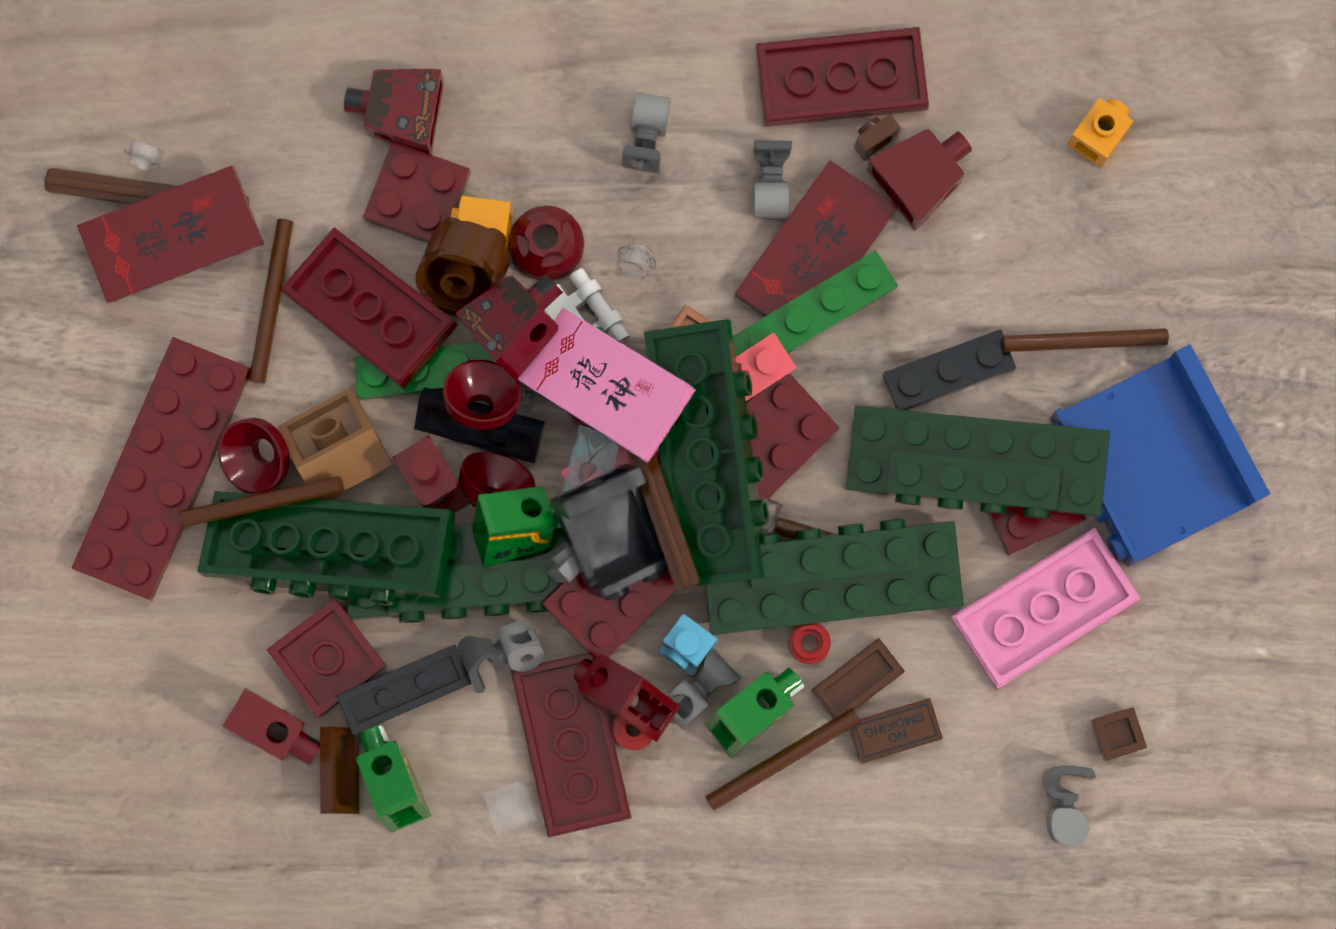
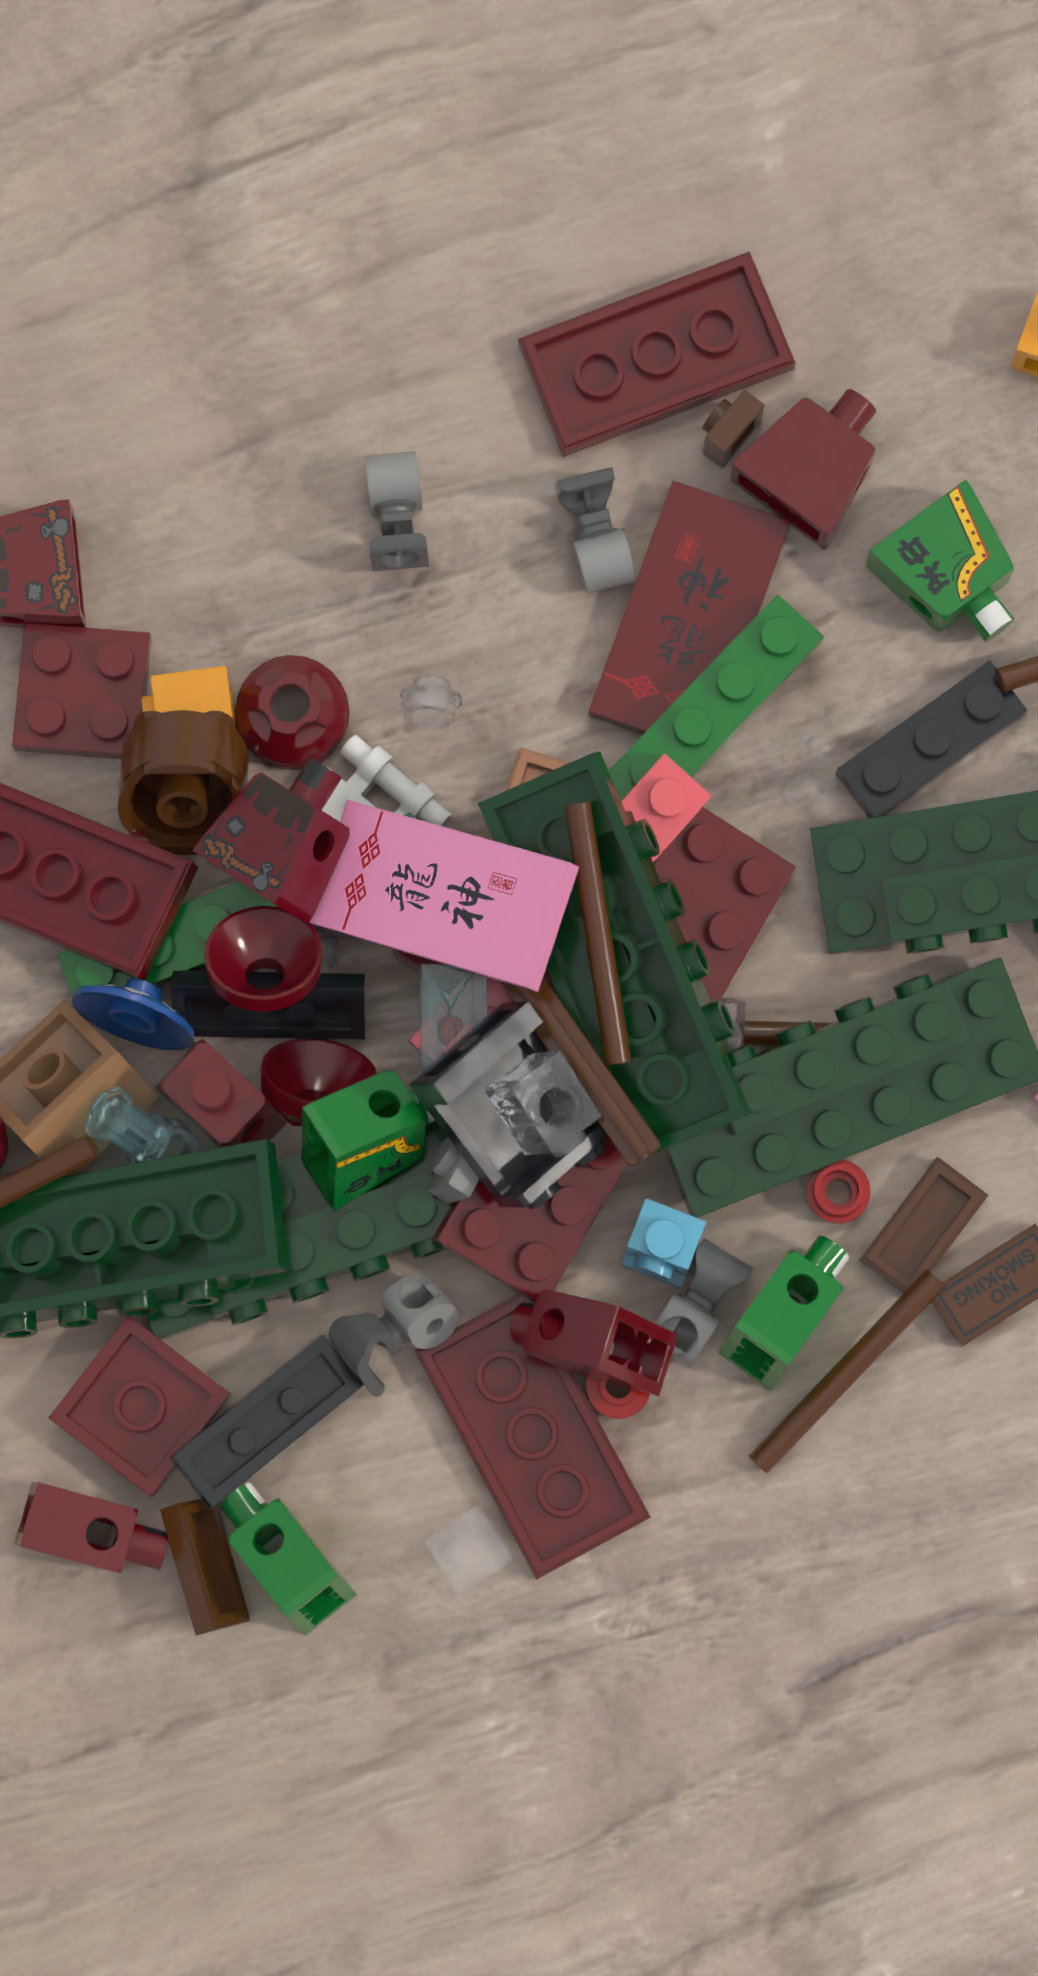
camera: 15 degrees left, 0 degrees up
(370, 481) = (134, 1130): none -> clear light blue connector
(391, 407) = (134, 1014): none -> blue dish
(615, 530) = (518, 1098): none -> clear brick
(696, 435) = (598, 933): none -> reddish brown bar
(991, 260) = (948, 564): none -> green torso

